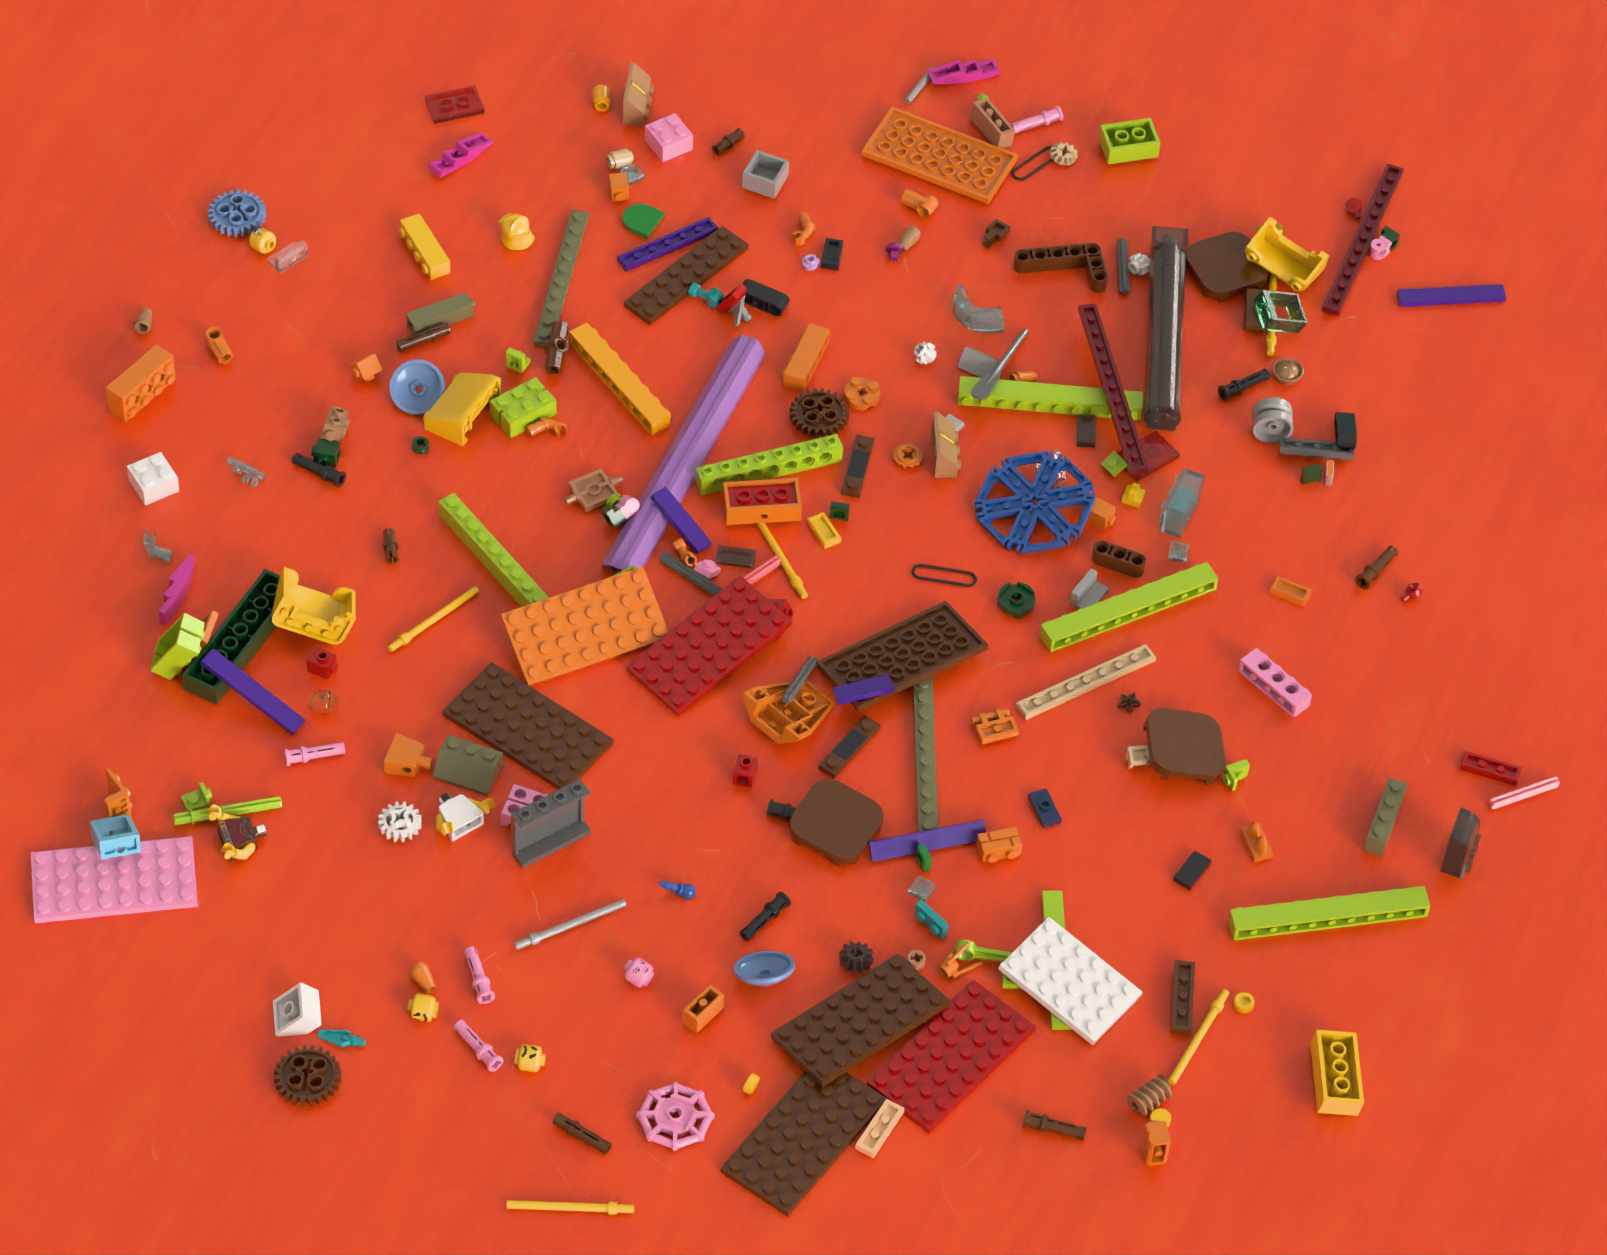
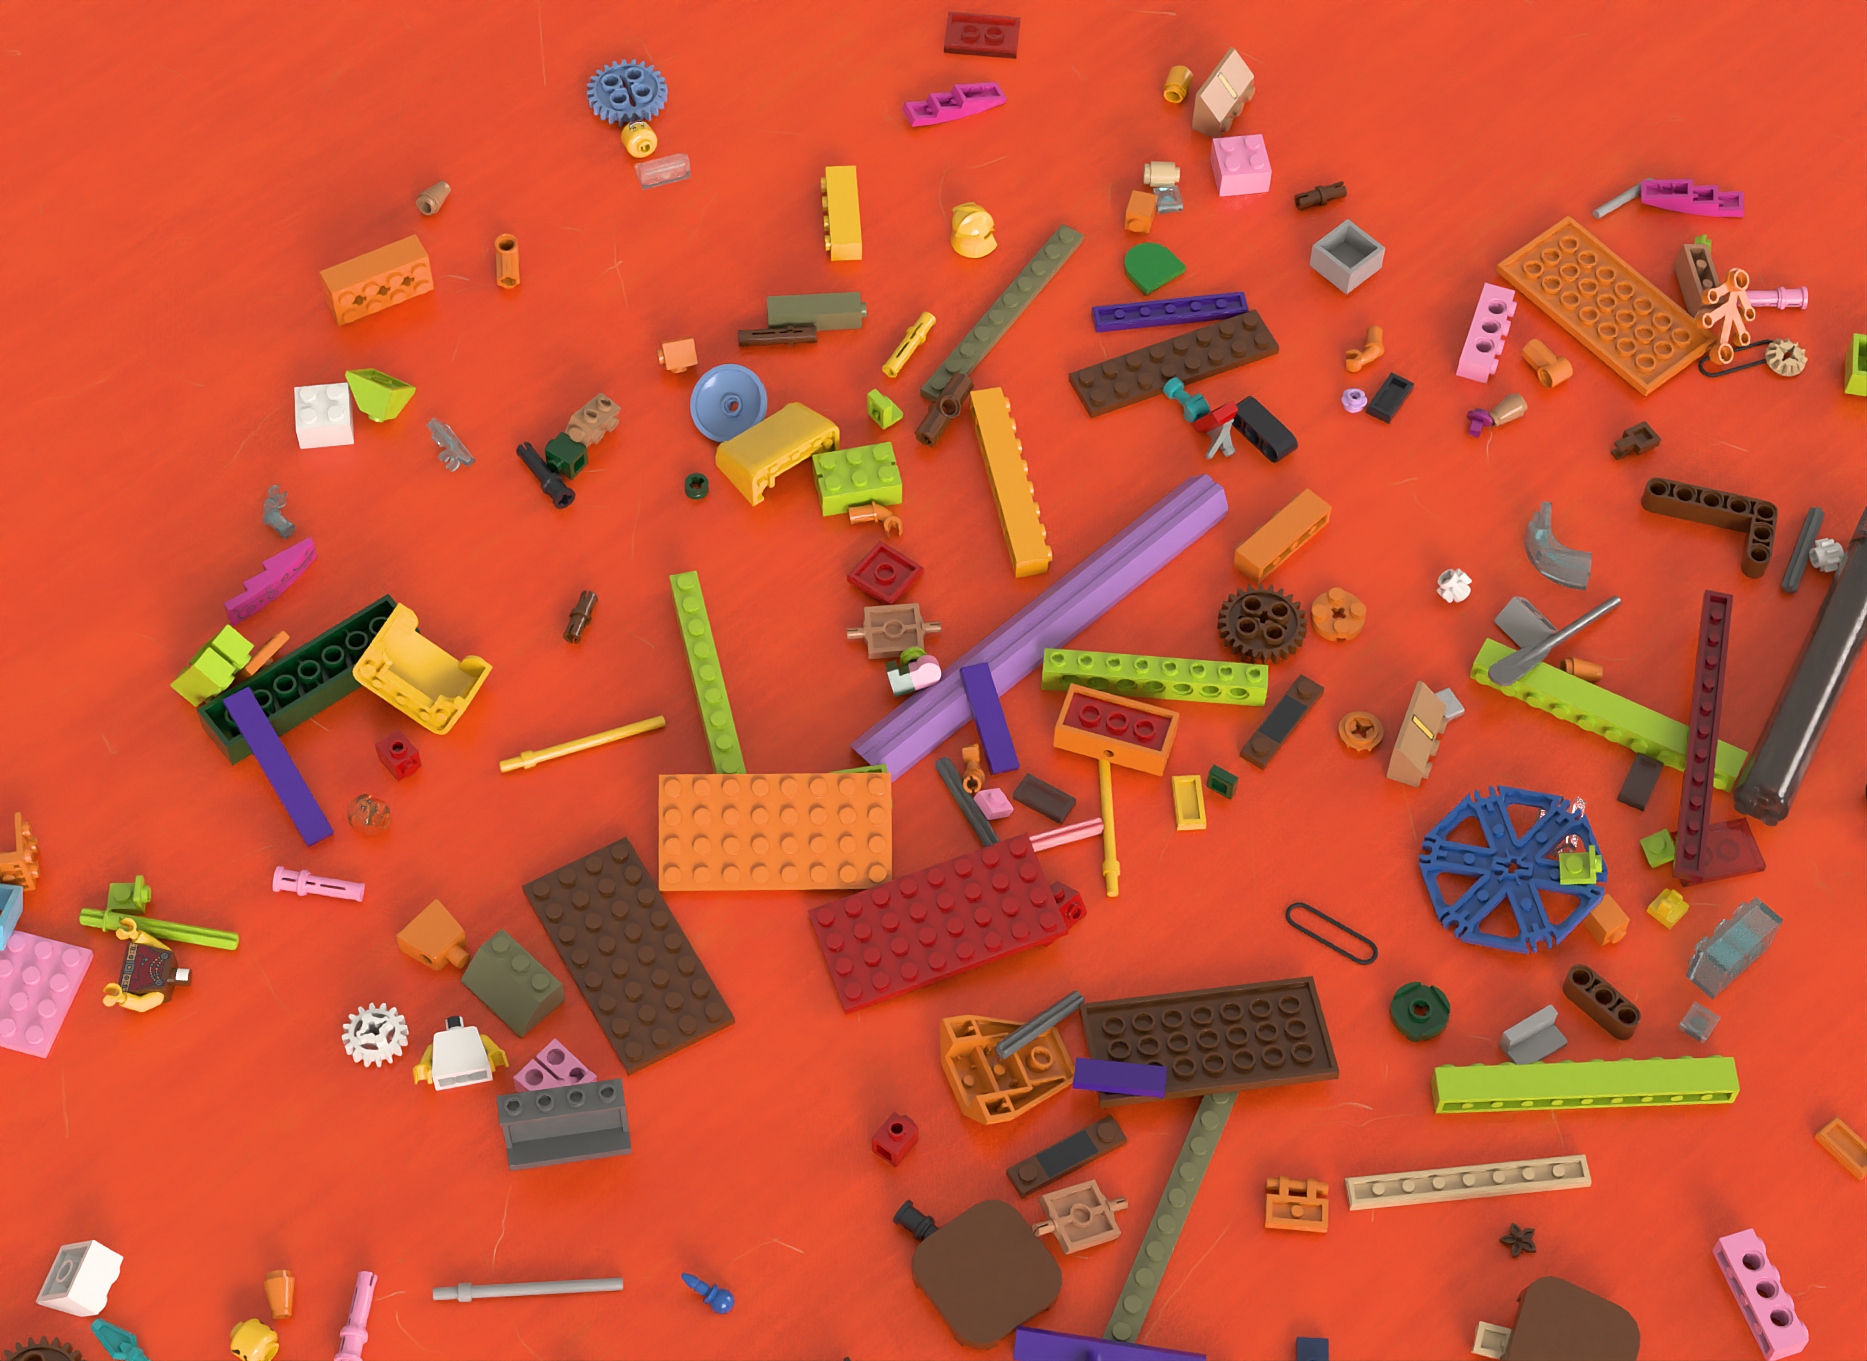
camera: 25 degrees right, 5 degrees up
(181, 454) = (379, 393): none -> lime slope
(514, 301) = (914, 336): none -> yellow pin
(570, 459) = (885, 574): none -> red plate
(873, 195) = (1485, 333): none -> bright pink brick
(874, 773) = (1080, 1216): none -> nougat plate
(1016, 117) = (1735, 284): none -> orange plant
(1076, 485) = (1579, 867): none -> lime bracket

